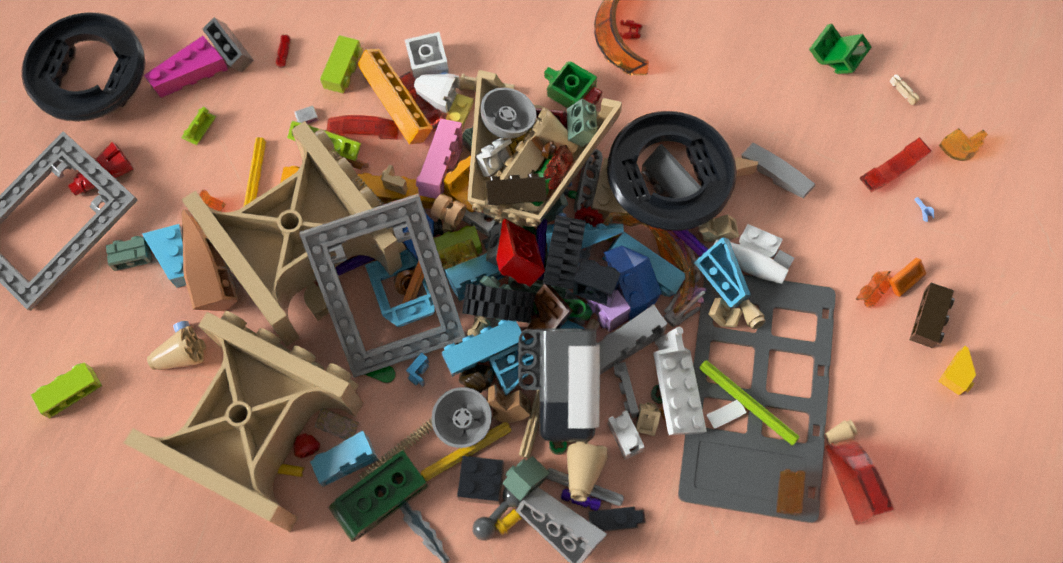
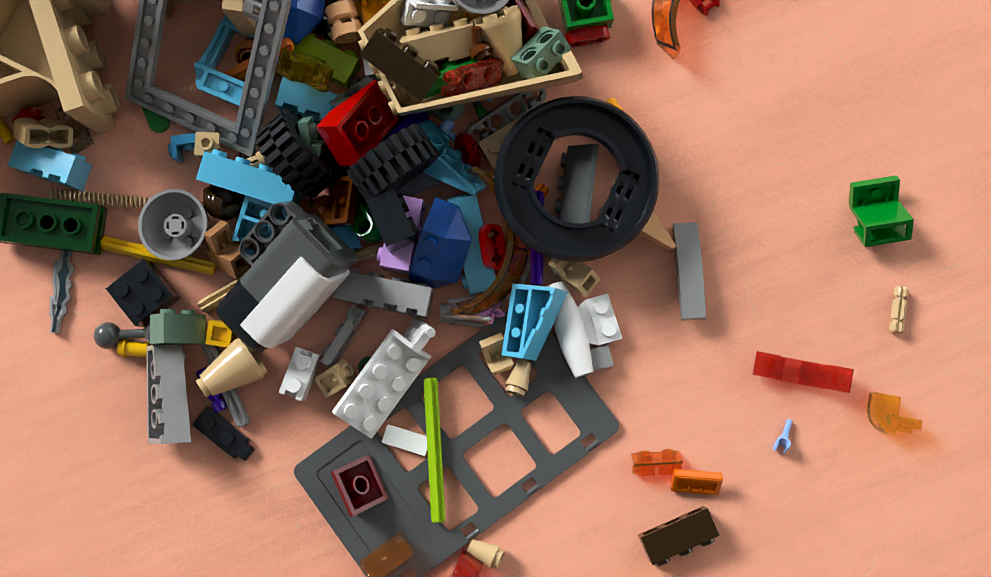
camera: 40 degrees right, 15 degrees up
(325, 439) = (43, 133): none -> tan brick
(433, 355) = (206, 142): none -> tan bracket
(553, 457) = (218, 334): none -> yellow tile
(661, 252) = (492, 246): none -> red beam
(729, 466) = (359, 485): none -> dark red slope

